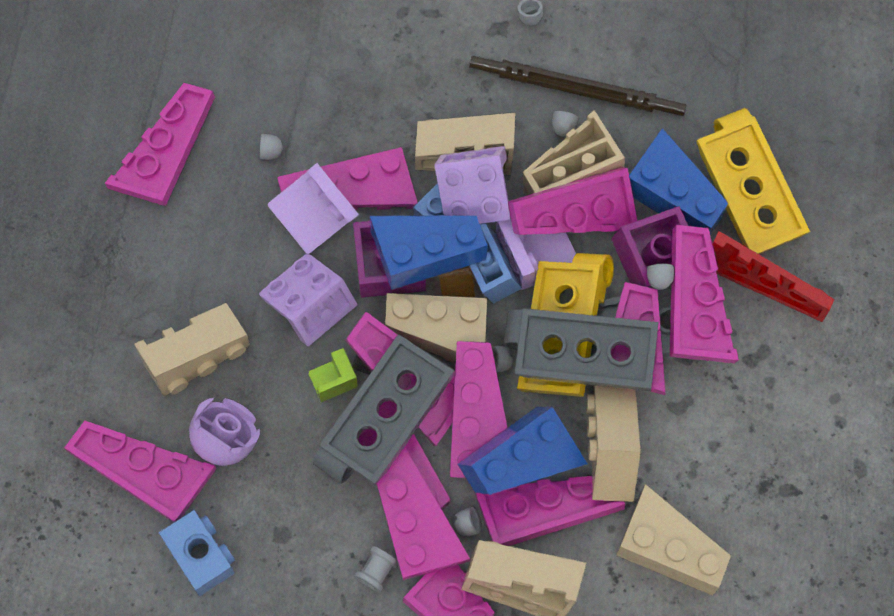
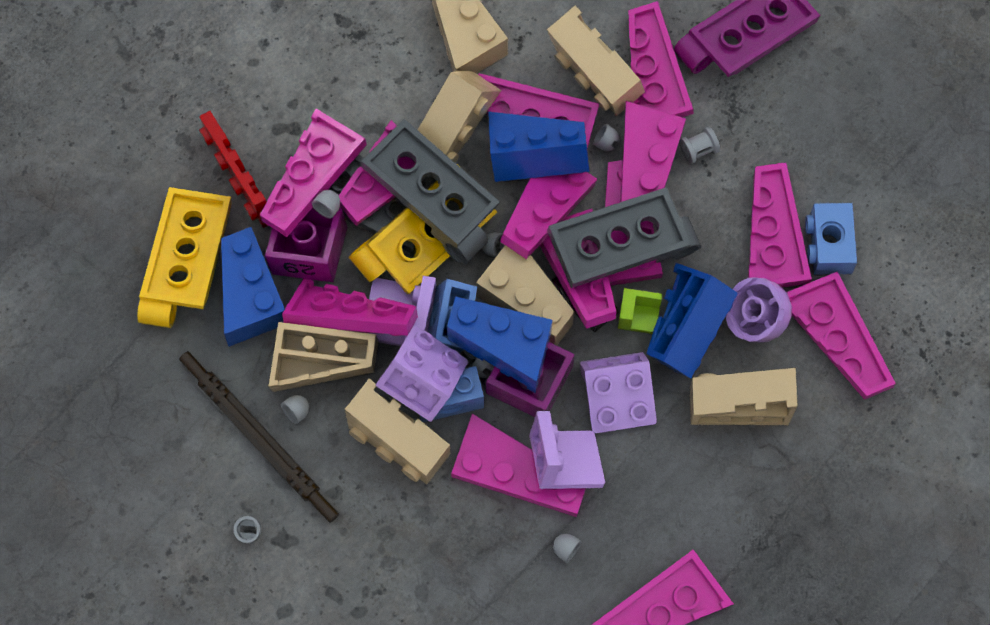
camera: 145 degrees left, 0 degrees up
(250, 522) = (776, 234): none -> dark pink wing
(280, 389) = (690, 319): none -> blue wedge

